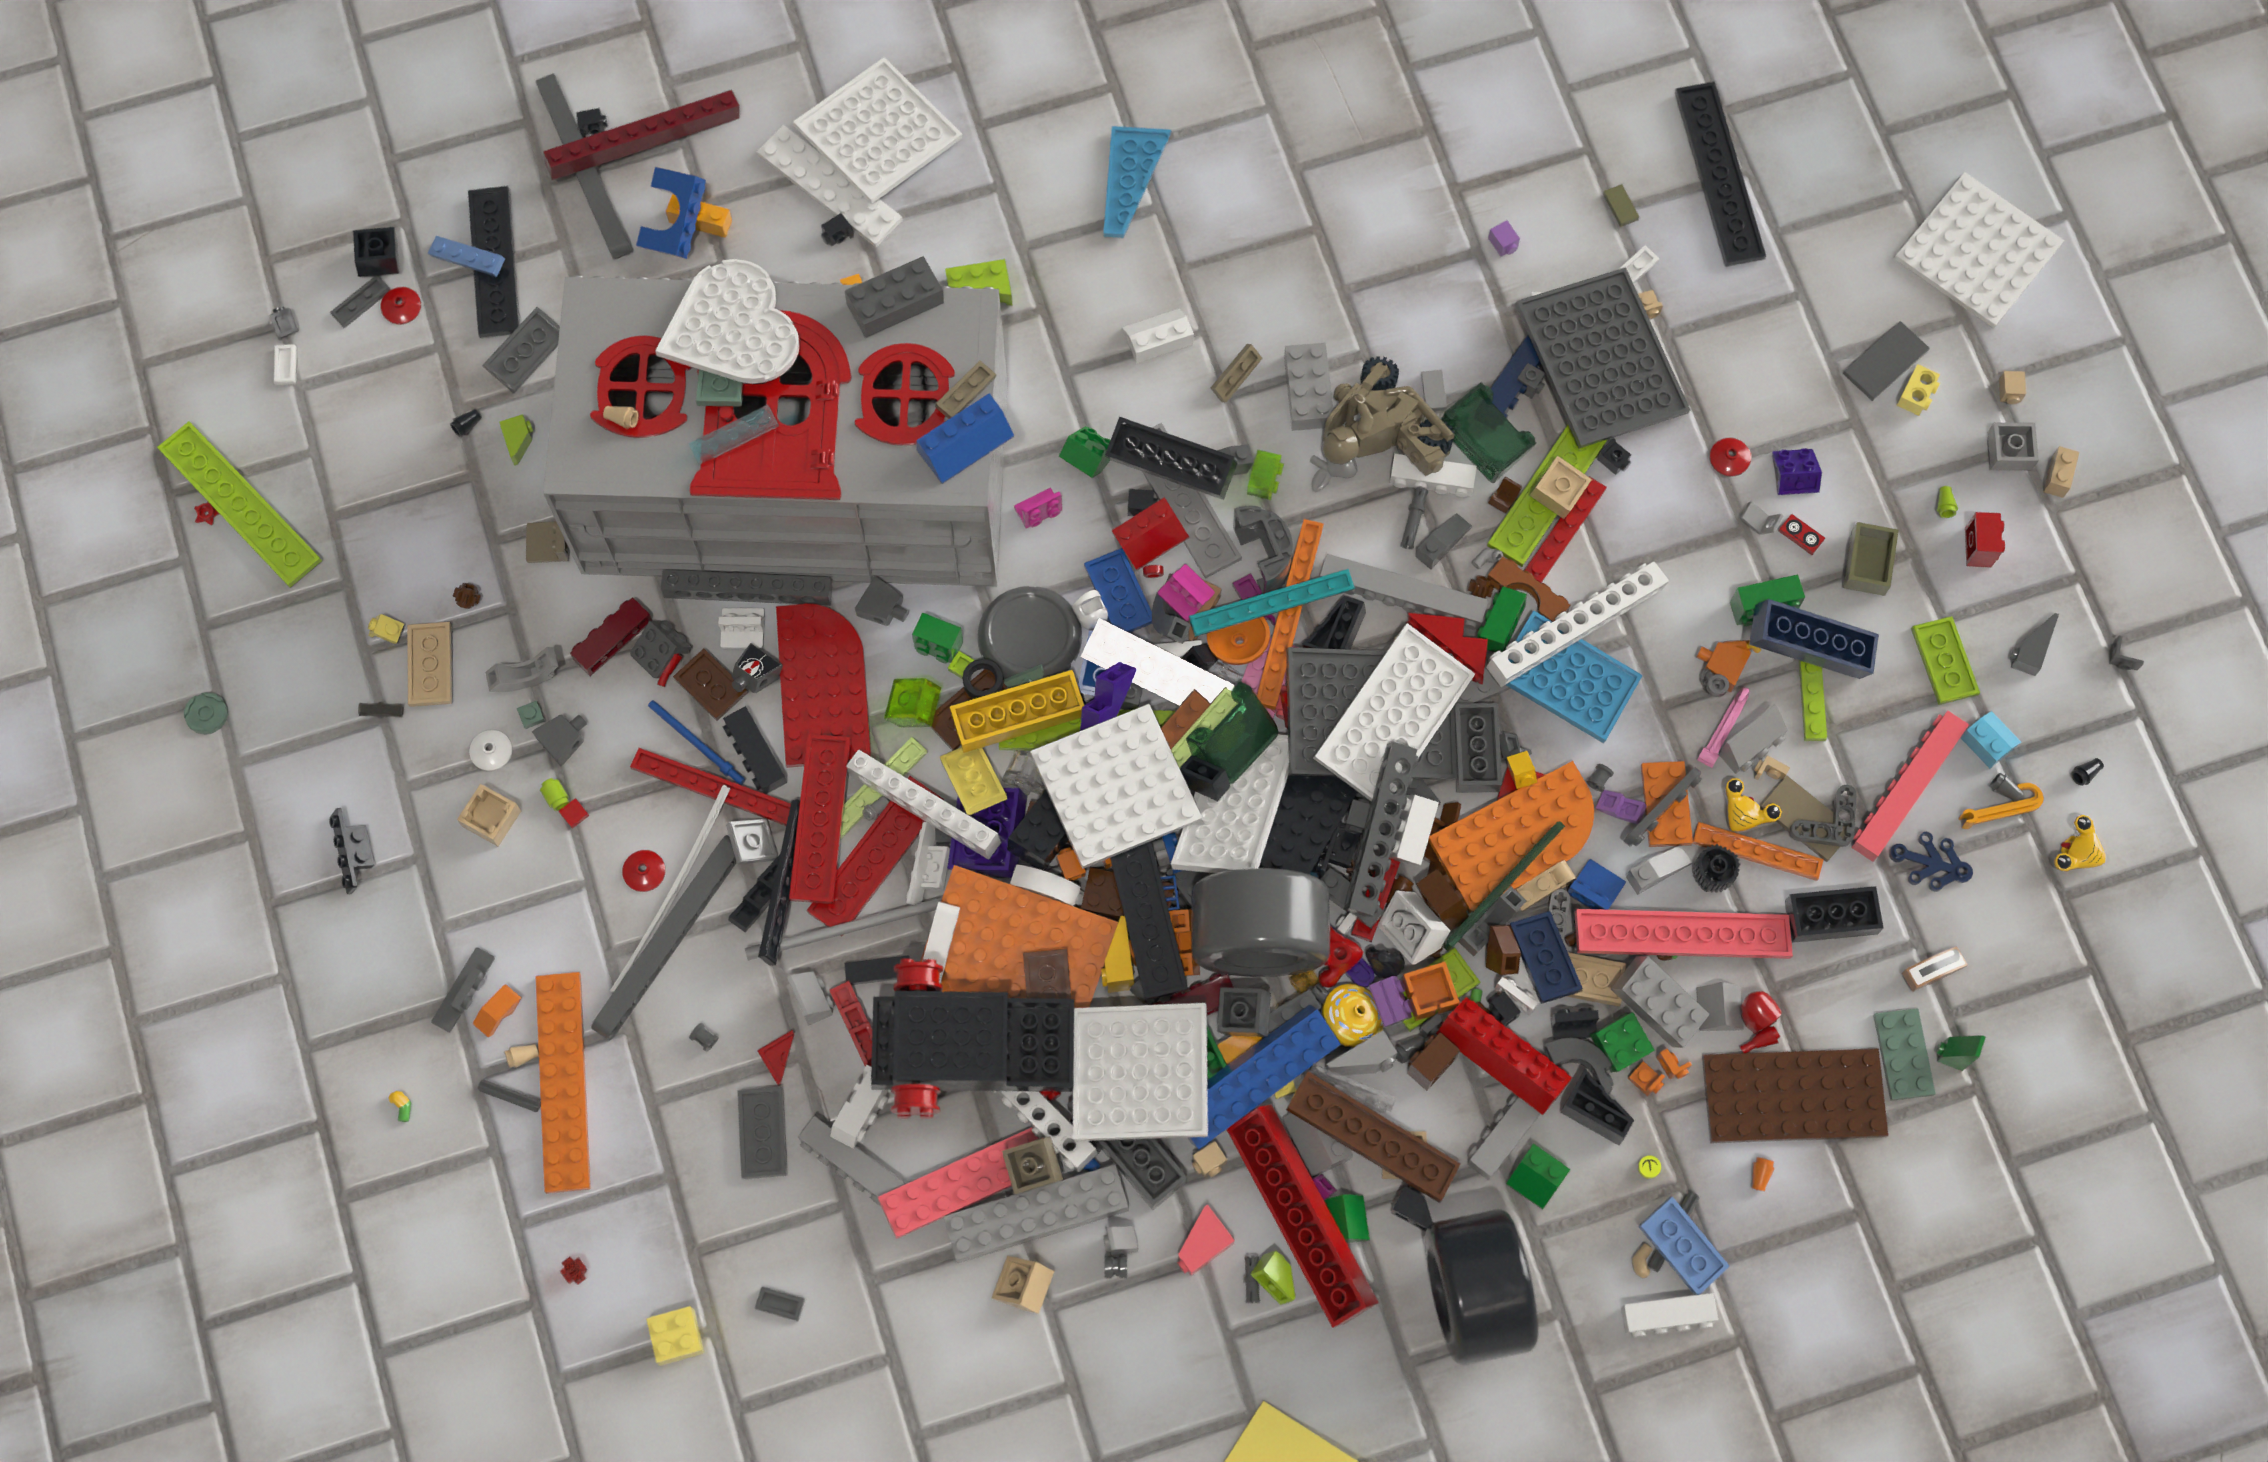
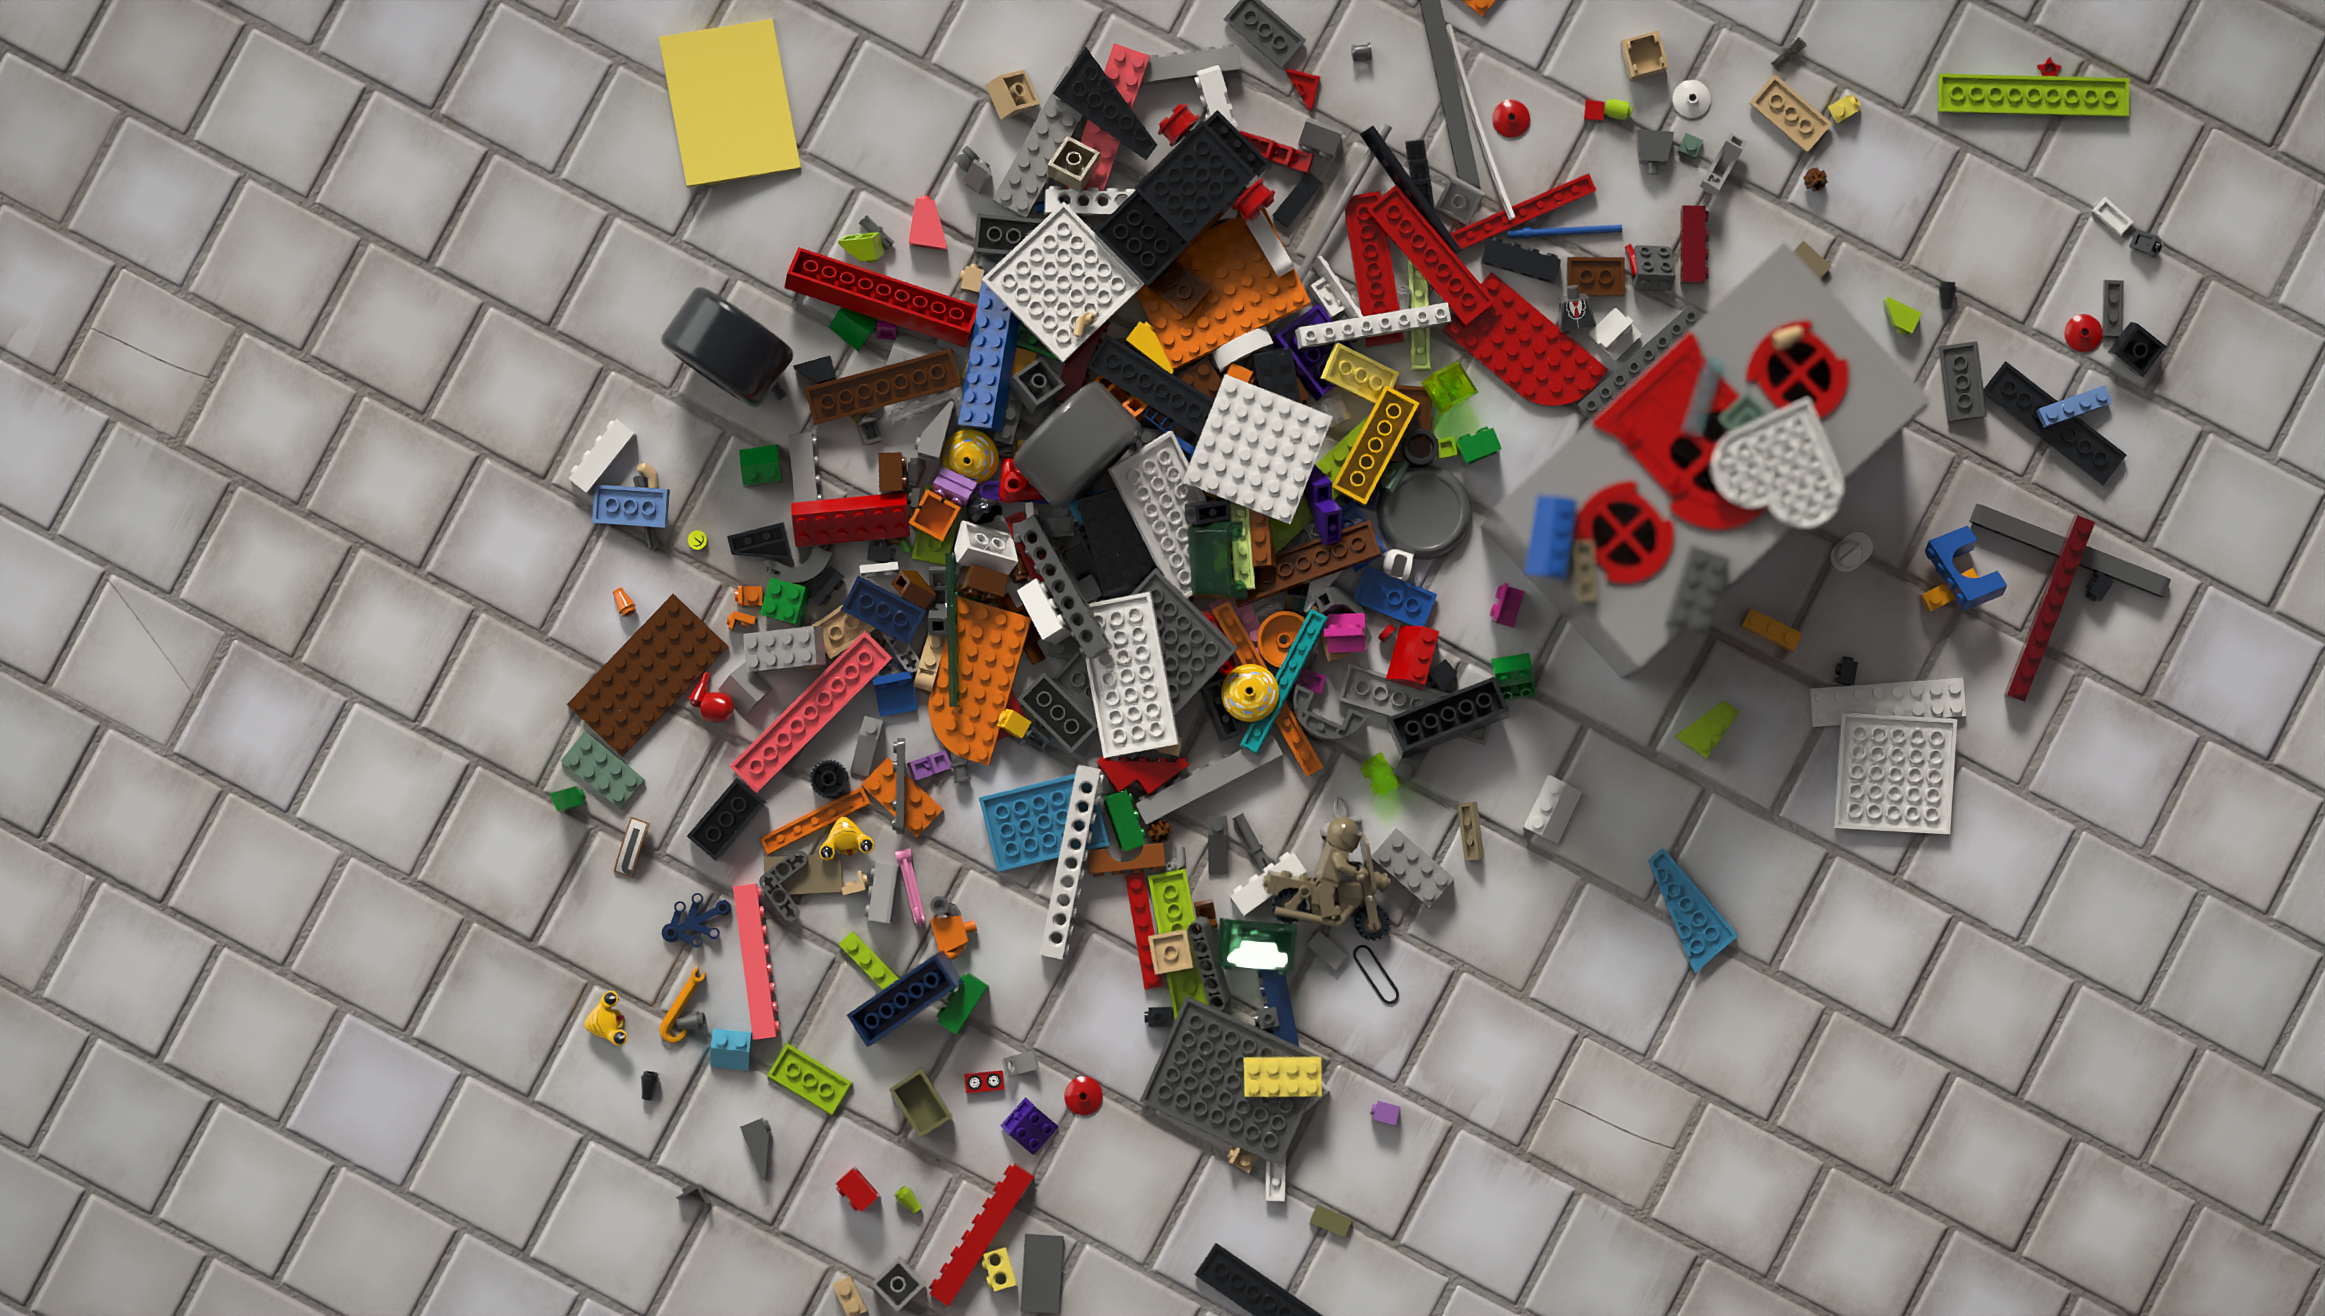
camera: 135 degrees right, 15 degrees up
(881, 603) = (1540, 437): dark grey torso -> none
(958, 1200) = (1097, 99): none -> black wing
(1156, 1019) = (1082, 322): none -> tan arm
(1308, 630) = (1250, 706): none -> yellow dish
(1404, 341) = (1376, 989): none -> black piece
(1417, 1117) = (869, 430): none -> dark grey bracket
(1537, 458) = (1202, 956): none -> dark grey beam
(1562, 320) = (1282, 1076): none -> light yellow plate
(1910, 426) = (981, 1234): none -> red brick

